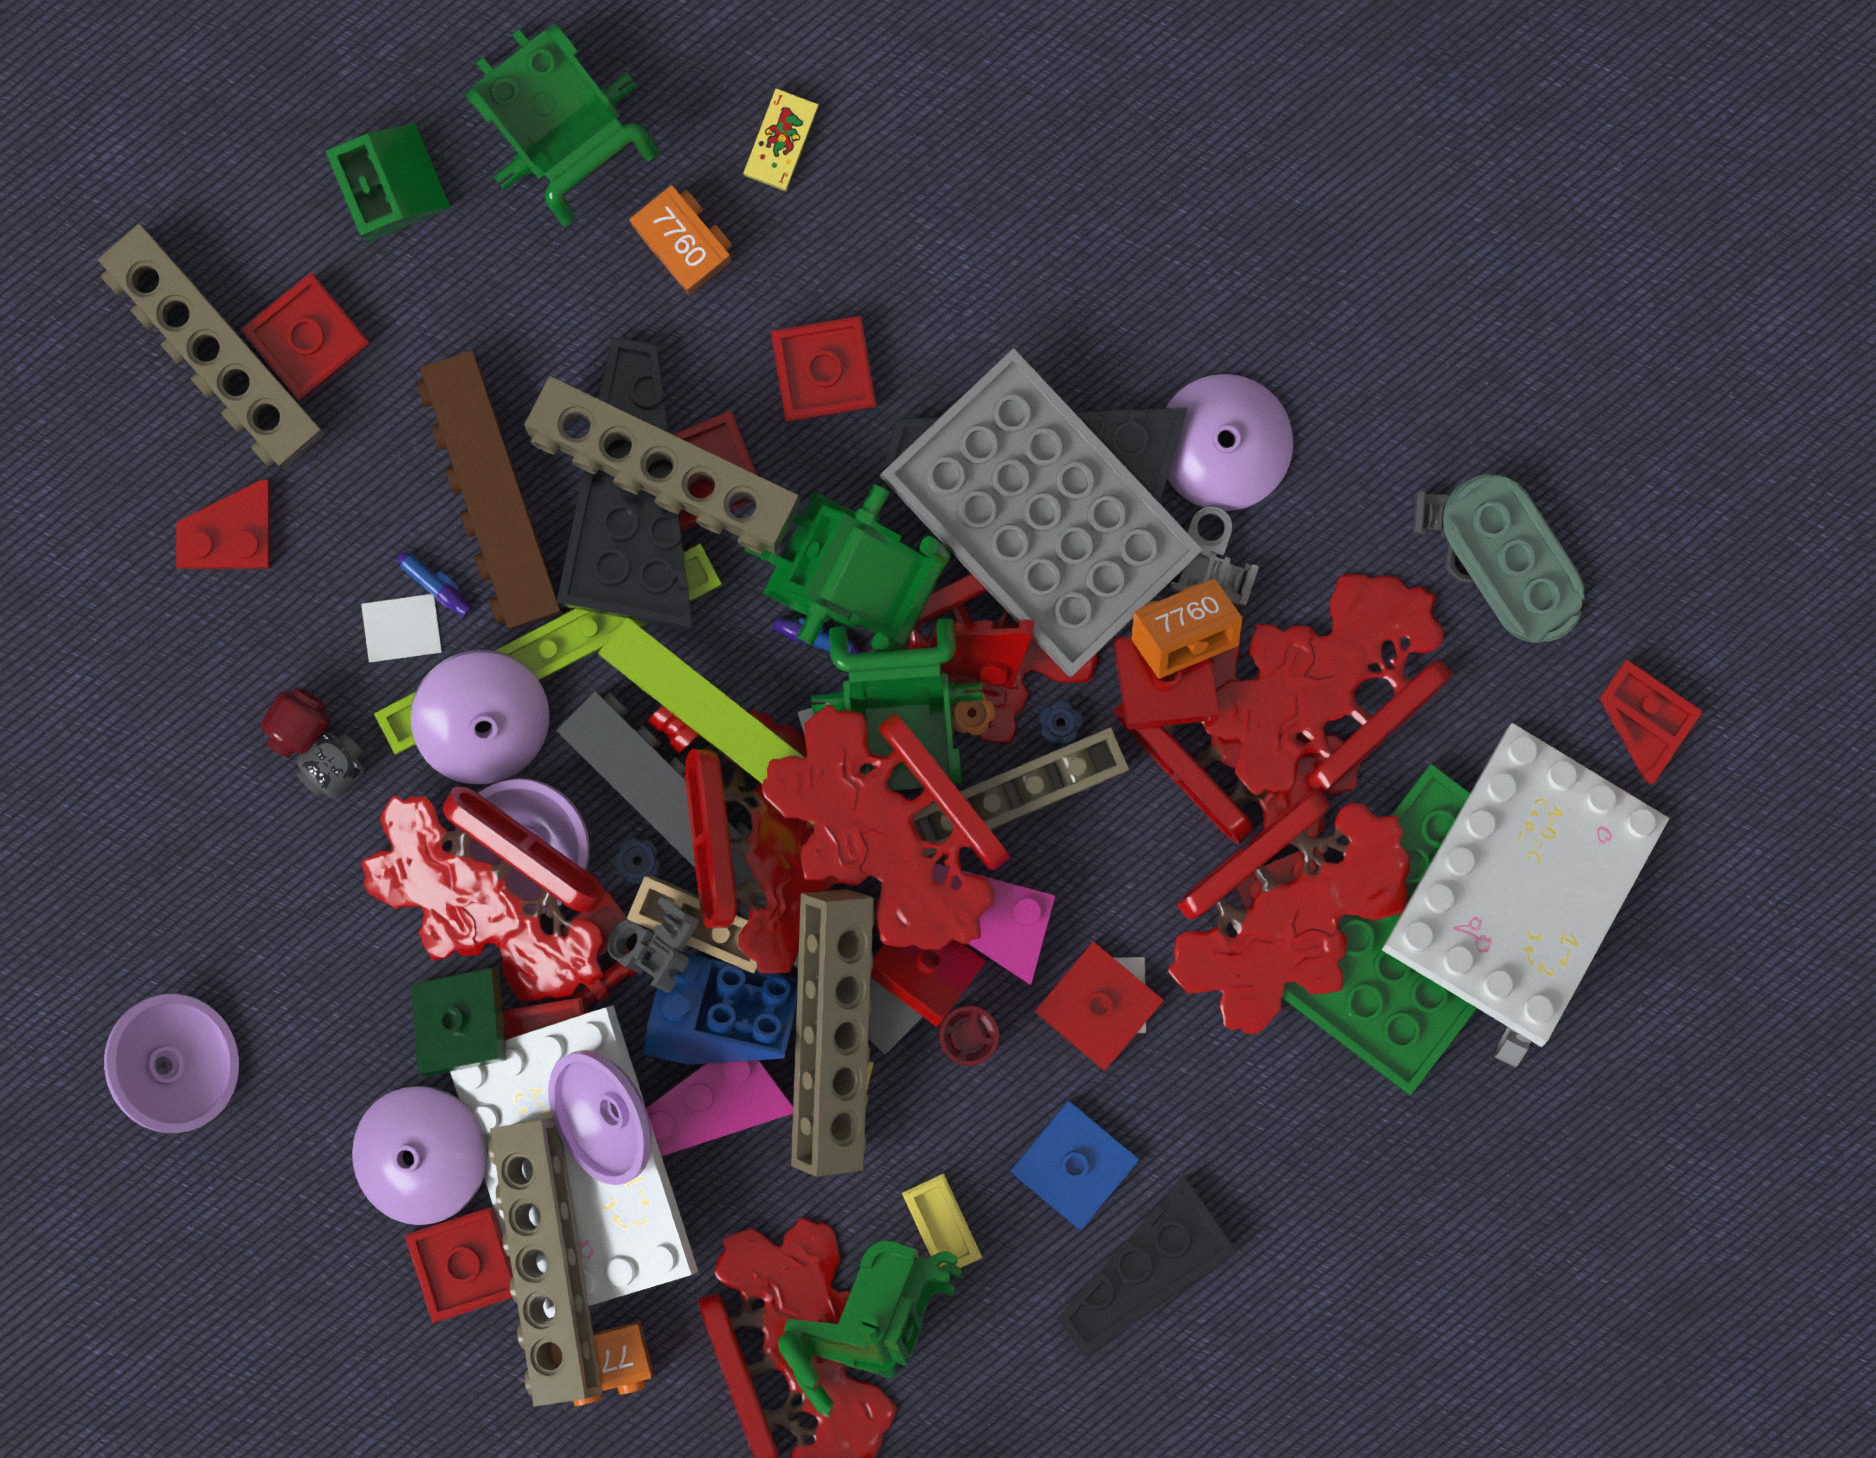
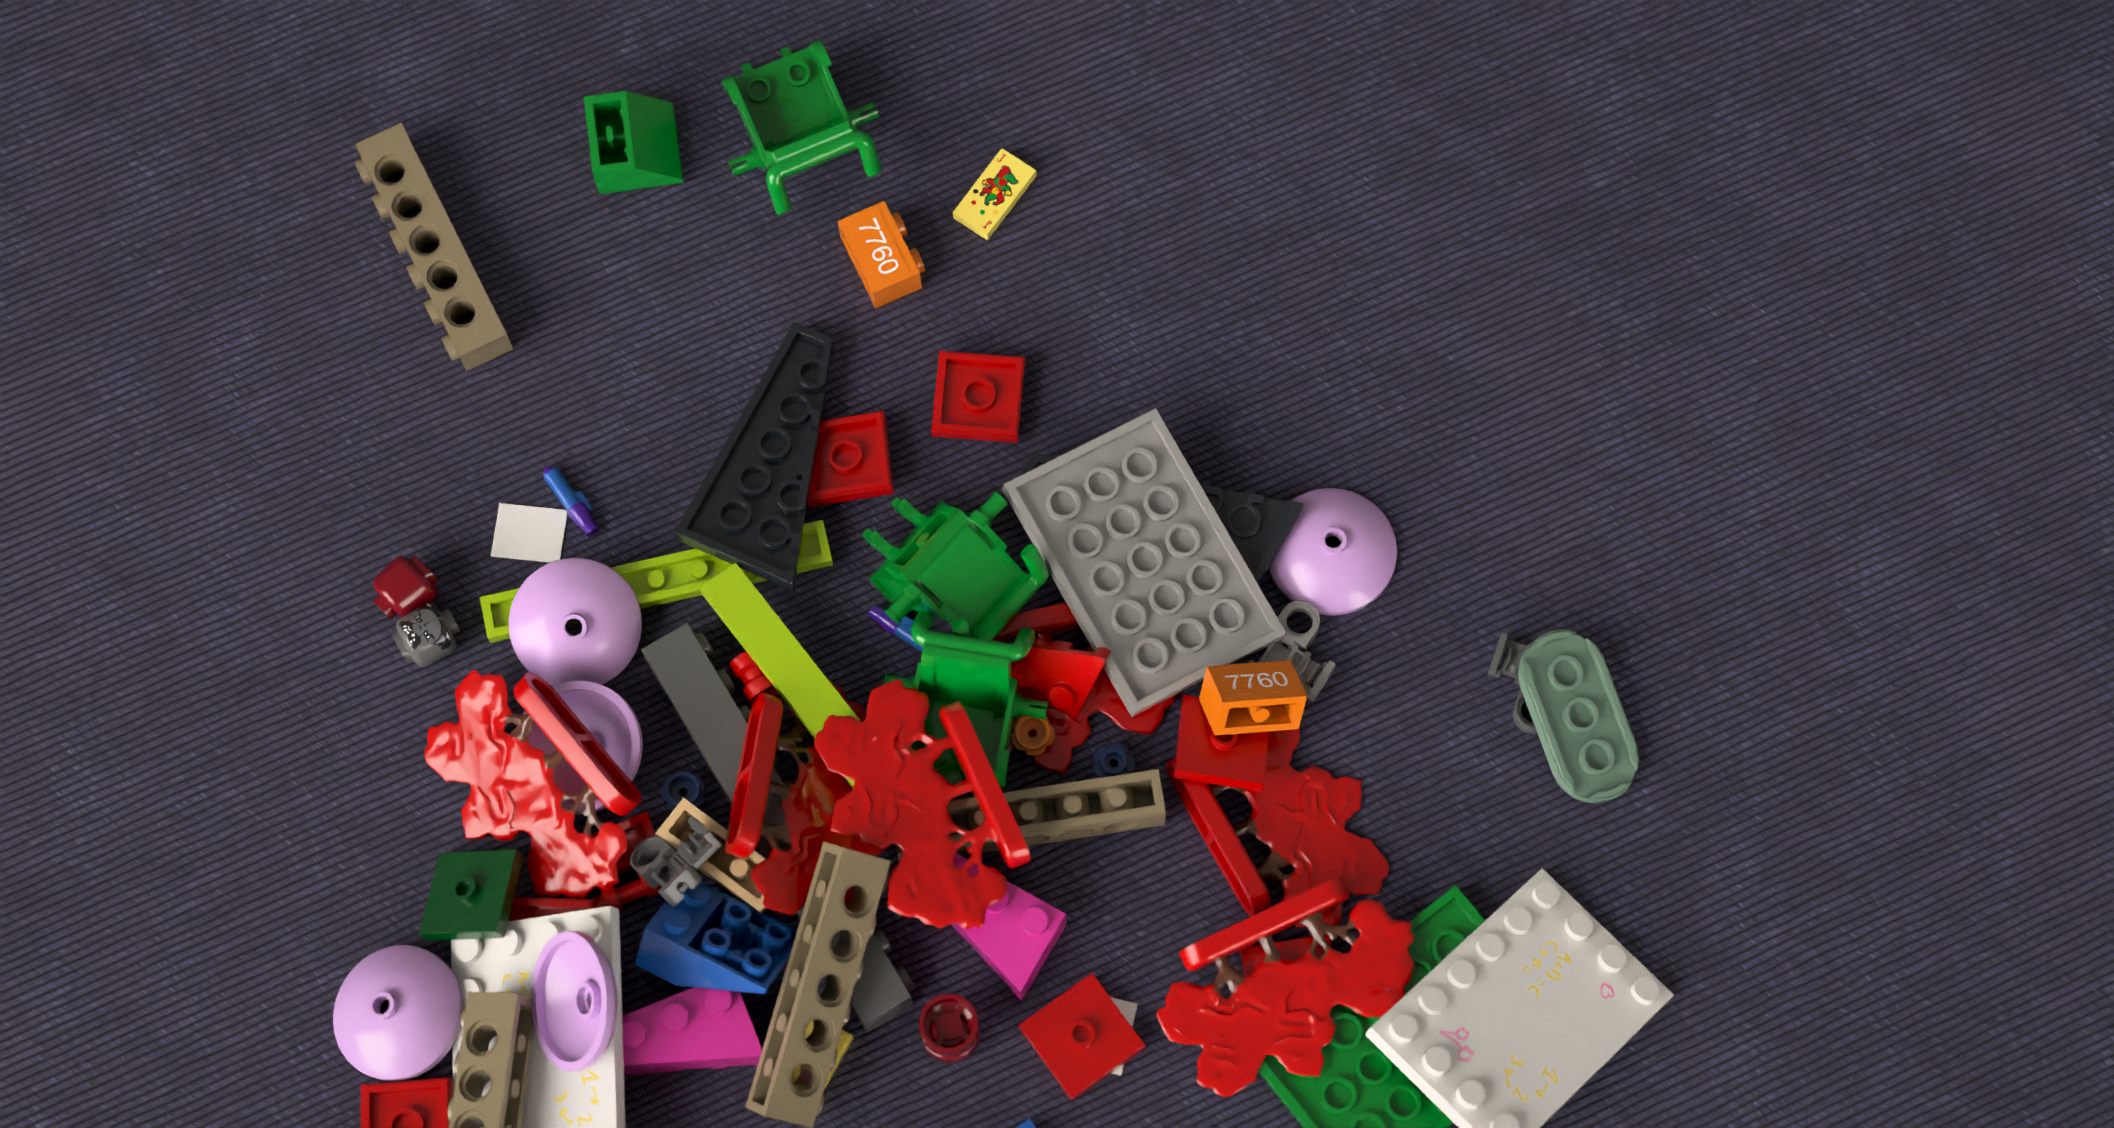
camera: 15 degrees right, 15 degrees down
(198, 1060) = (213, 846): lavender dish -> none
(228, 533) = (398, 410): red wing -> none
(305, 337) = (520, 258): red plate -> none
(490, 491) = (645, 429): reddish brown brick -> none
(563, 404) = (732, 362): dark tan brick -> none
(927, 978) = (924, 957): red plate -> none
(1314, 681) = (1363, 783): red plant -> none
(1647, 718) = (1673, 895): red wing -> none

